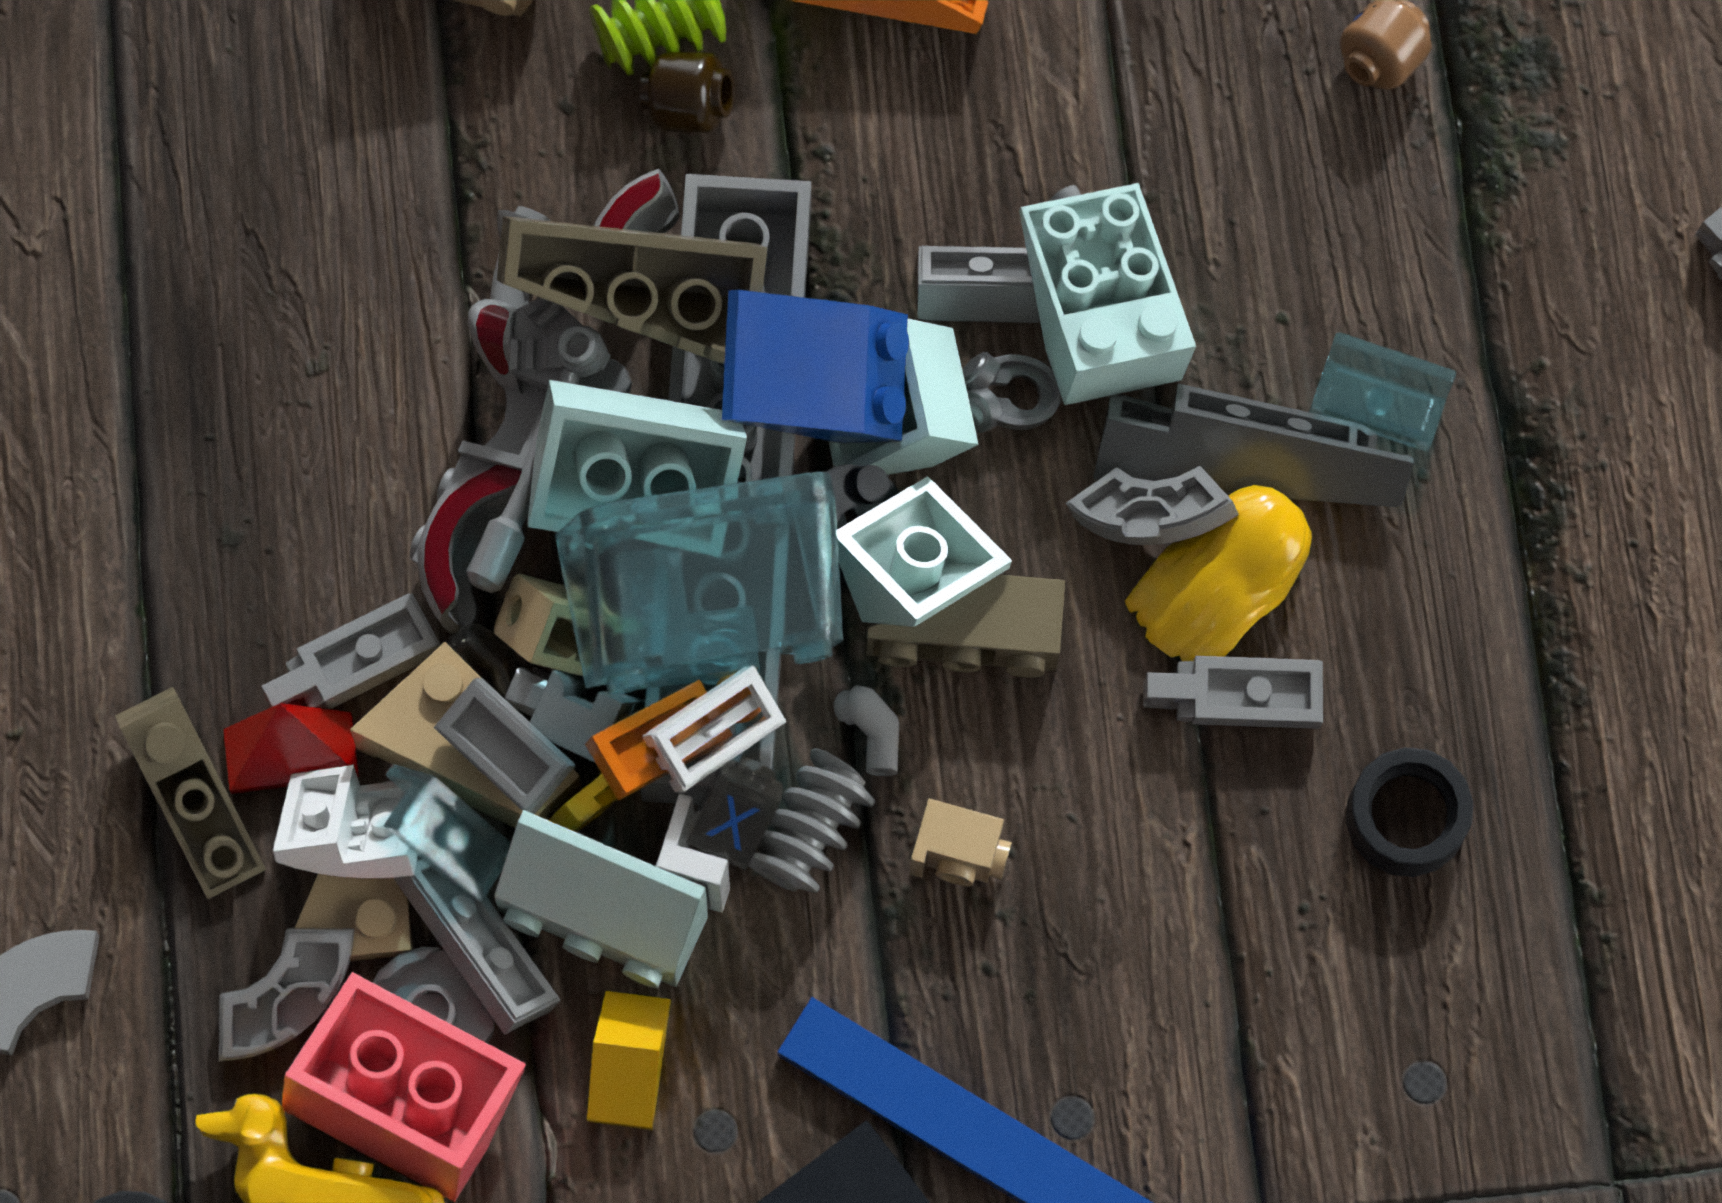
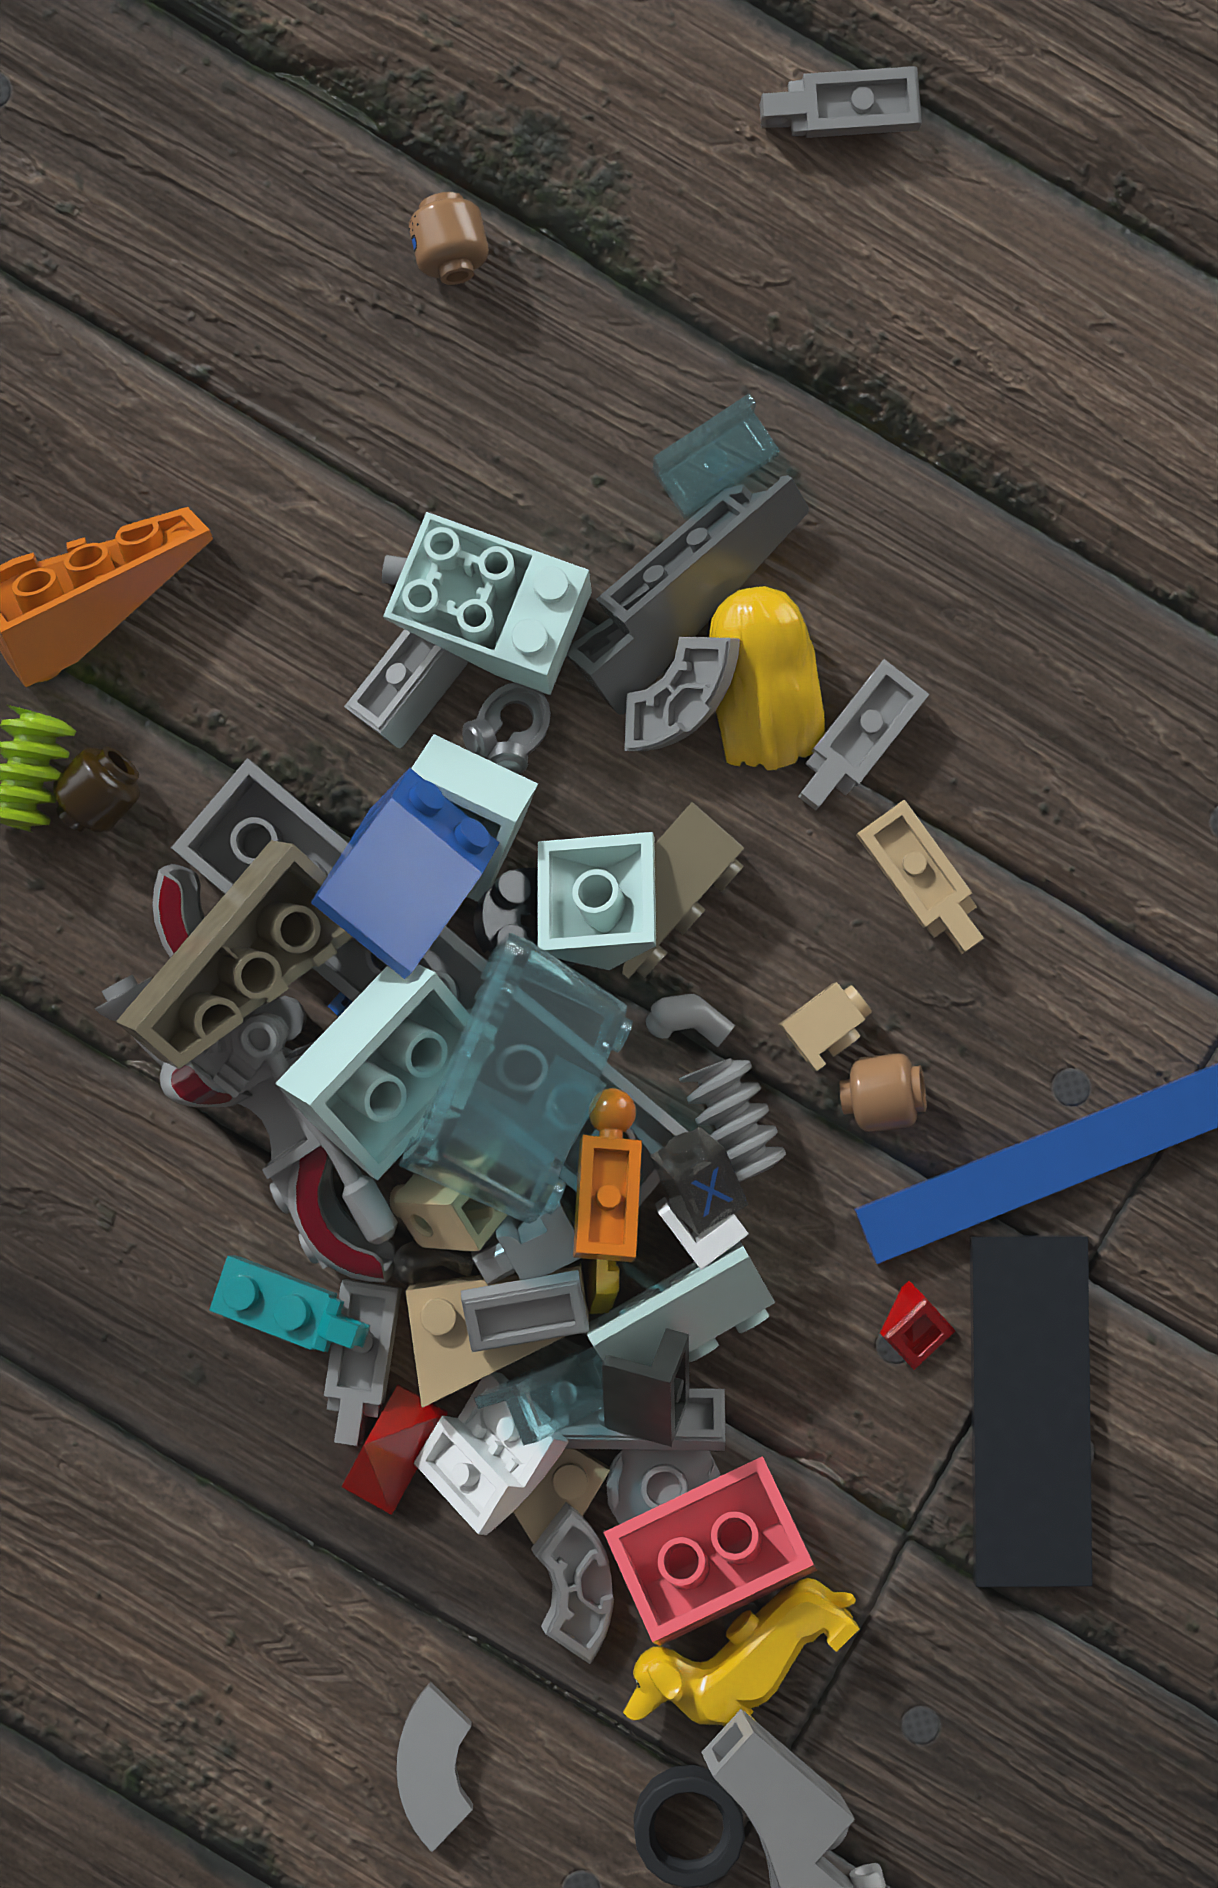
camera: 50 degrees left, 15 degrees up
(190, 792) = (370, 1547): dark tan slope -> none
(351, 560) = (284, 1306): none -> teal hinge
(510, 913) = (645, 1398): none -> pearl dark grey panel
(627, 1060) = (800, 1370): yellow slope -> none
(671, 756) = (612, 1160): white tile -> none
(744, 1132) = (915, 1326): none -> red slope
(937, 942) = (884, 1092): none -> medium nougat head
(1158, 836) = (922, 875): none -> tan hinge
(1430, 768) = (1077, 662): black tyre -> none

